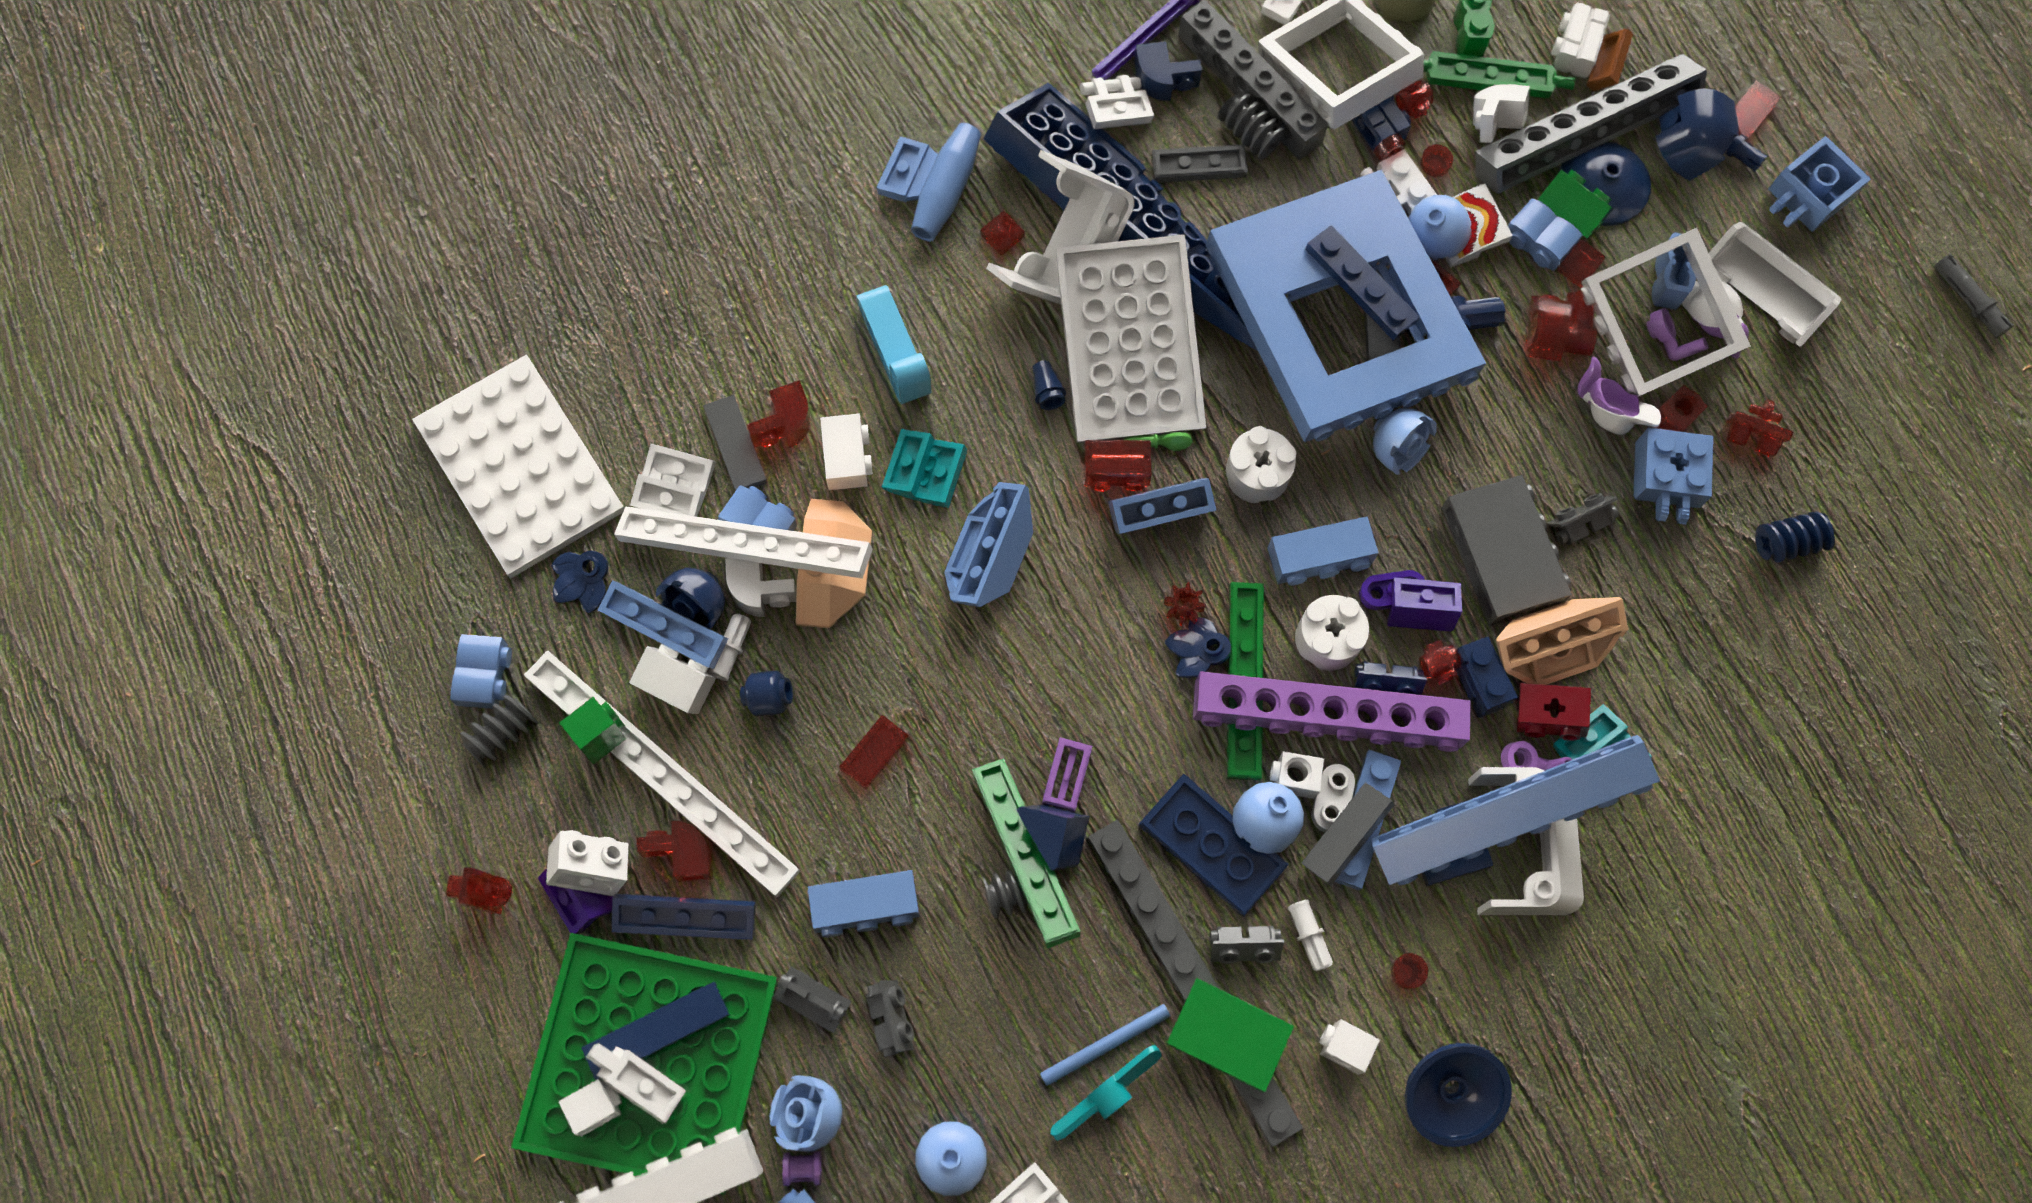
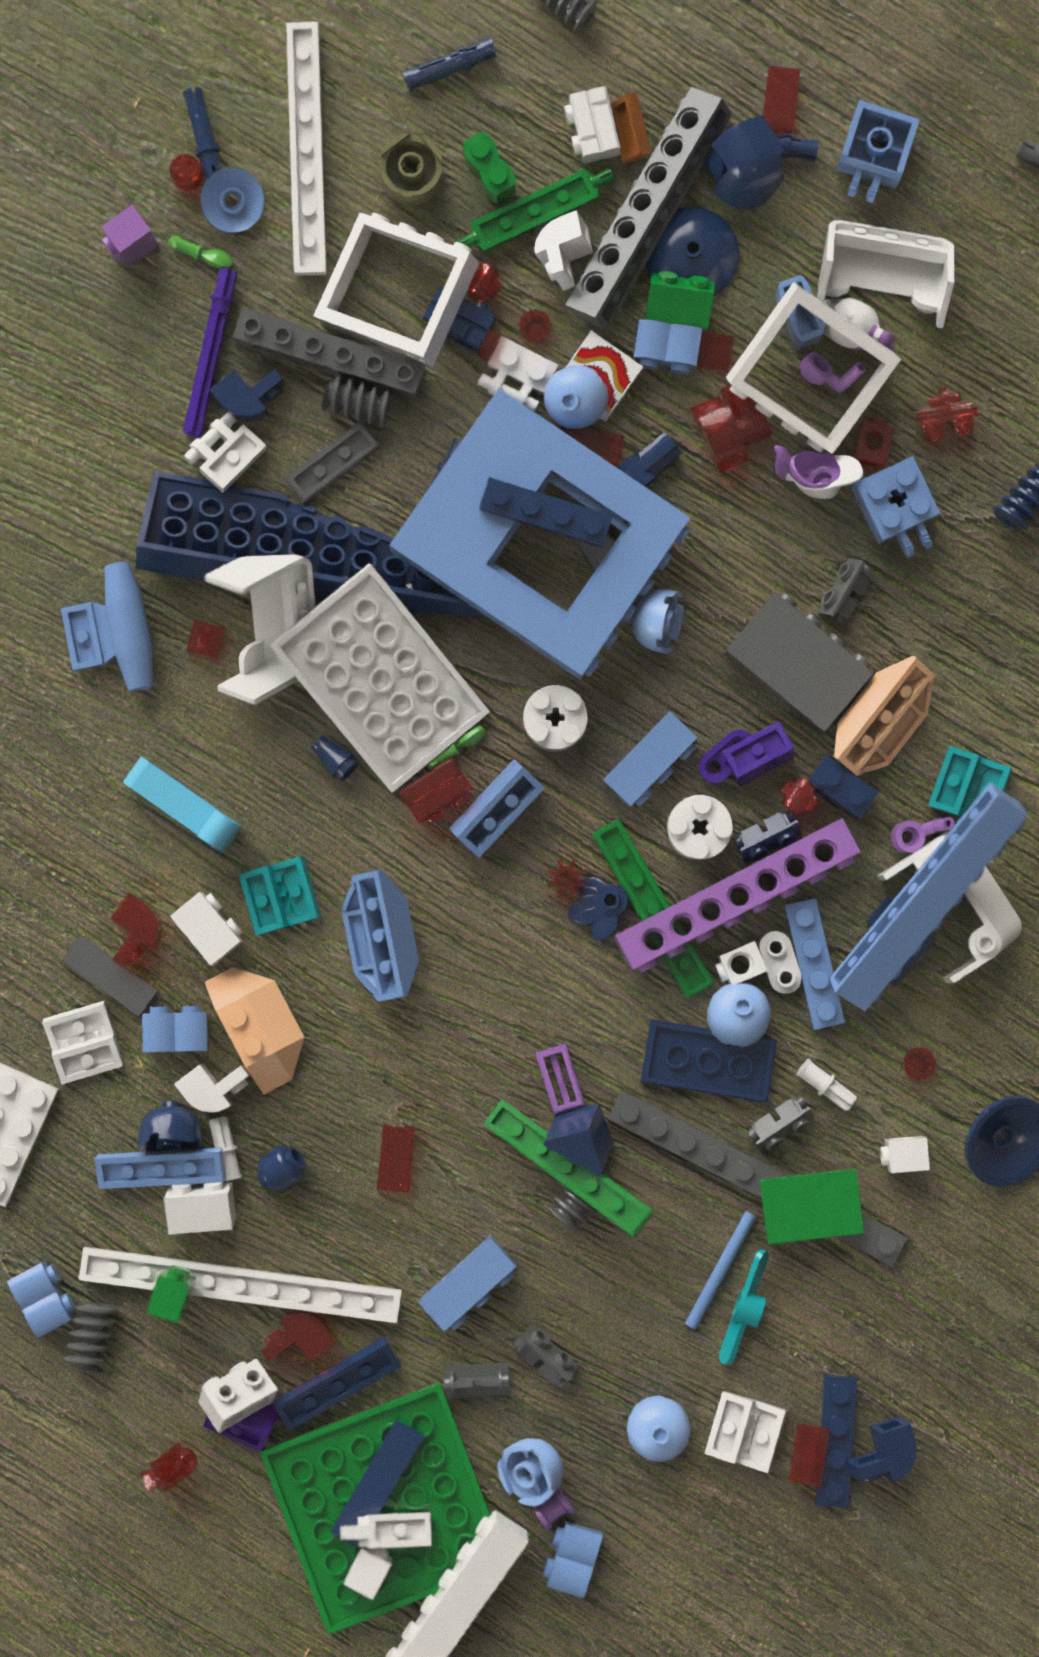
camera: 25 degrees left, 15 degrees up
(577, 582) = (63, 1175): dark blue plate -> none
(744, 542) = (181, 1064): white plate -> none
(1348, 833) = (809, 989): dark grey tile -> none
(1571, 706) = (894, 782): dark red brick -> none

